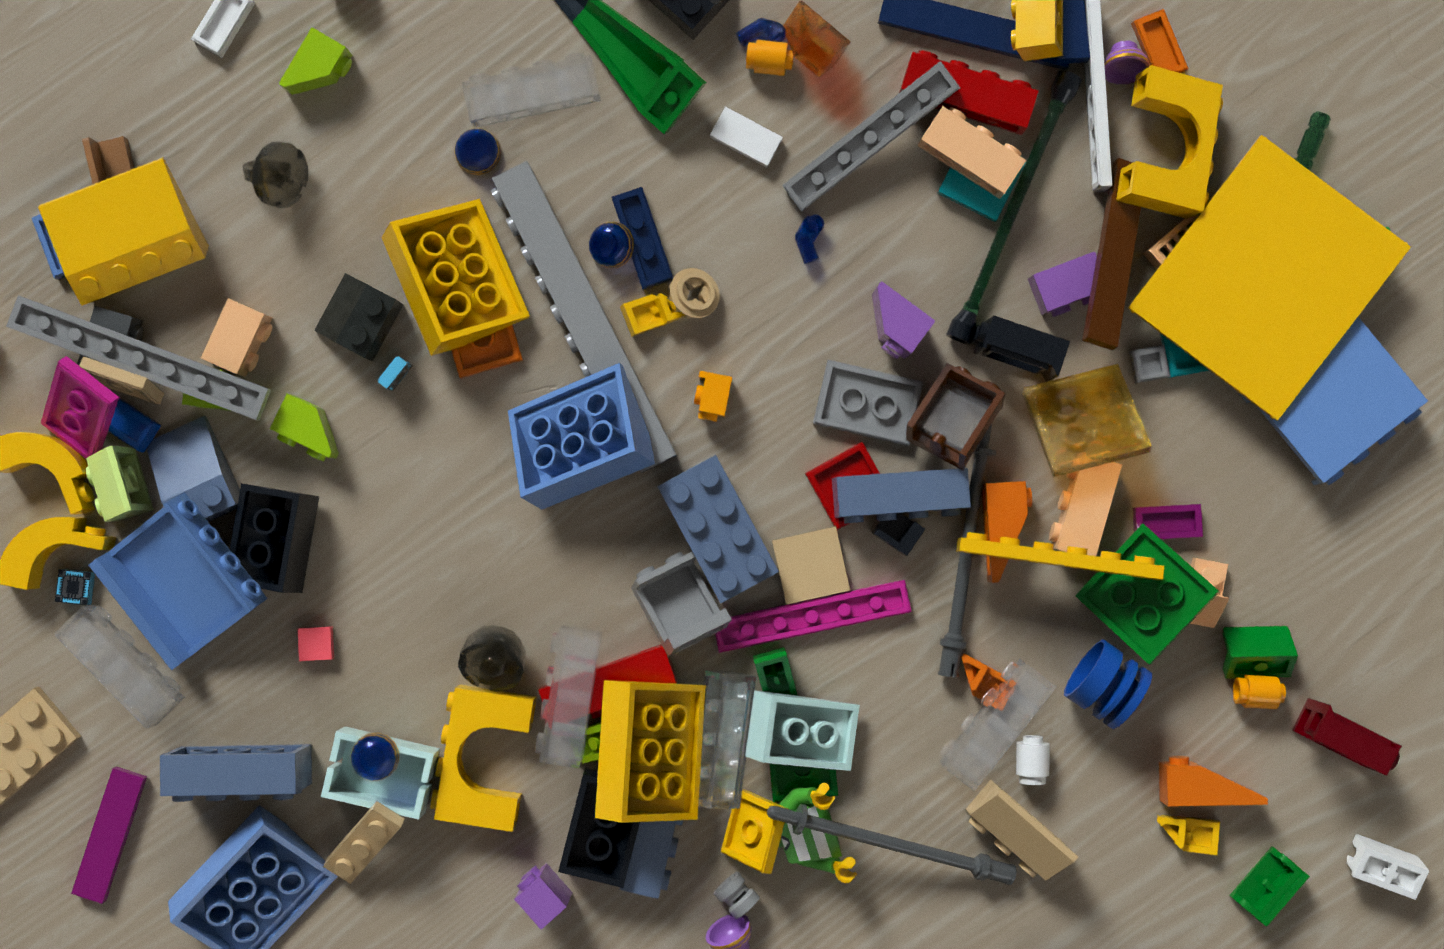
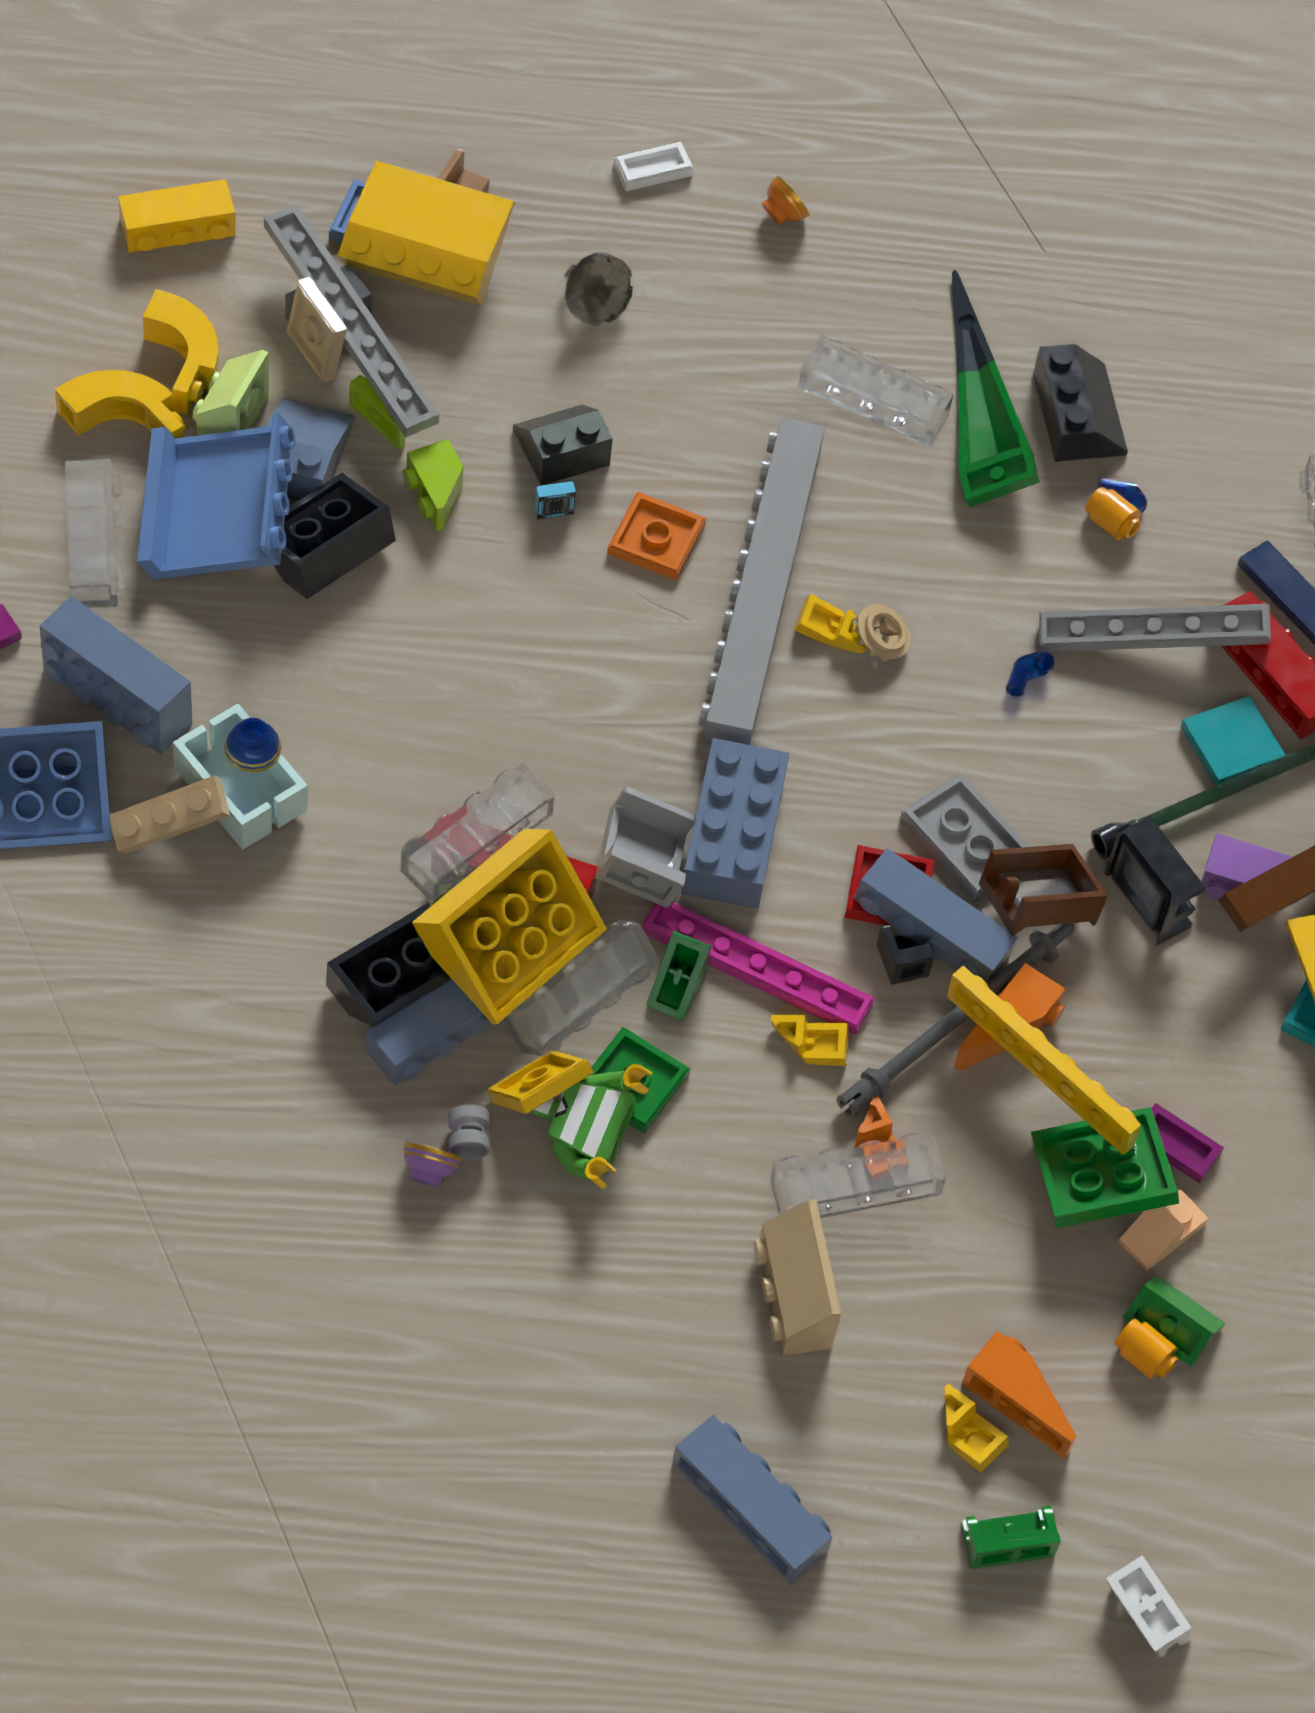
camera: 25 degrees right, 30 degrees down
(74, 587) = (113, 447): tile -> none
(79, 408) = (262, 315): dark pink tile -> none
(133, 426) = (286, 371): blue tile -> none
(237, 338) = (449, 374): light nougat brick -> none
(315, 643) = (278, 648): coral tile -> none
(316, 64) = (703, 244): lime slope -> none
(454, 275) = (678, 466): yellow slope -> none
(458, 796) = (365, 799): yellow arch -> none
(477, 151) = (784, 399): clear blue piece -> none
(493, 658) = (430, 762): clear smoke cylinder -> none
(542, 895) = (291, 980): medium lavender brick -> none
(579, 438) = (673, 656): medium blue slope -> none
(611, 244) = (839, 546): clear blue piece -> none
(648, 251) = (873, 564): dark blue tile -> none
(712, 396) = (829, 720): light orange brick -> none
(746, 137) = (1038, 559): white tile -> none
(802, 731) = (666, 1032): light aqua slope -> none
(810, 565) = (795, 920): tan tile -> none
(814, 39) = (1168, 529): clear orange slope -> none
(890, 641) = (814, 1042): none -> yellow slope
(898, 322) = (1056, 781): medium lavender slope -> none
(972, 151) = (1240, 703): light nougat brick -> none
(980, 866) = (730, 1288): dark grey bar -> none
(1032, 760) = (865, 1238): white brick -> none
(1085, 508) = (1119, 1054): light nougat brick -> none
(1086, 420) = (1167, 984): clear yellow plate -> none
(1113, 687) = (998, 1214): blue wheel -> none
(1149, 364) = (1270, 1001): light grey tile -> none
(1346, 737) = (1203, 1445): dark red window -> none

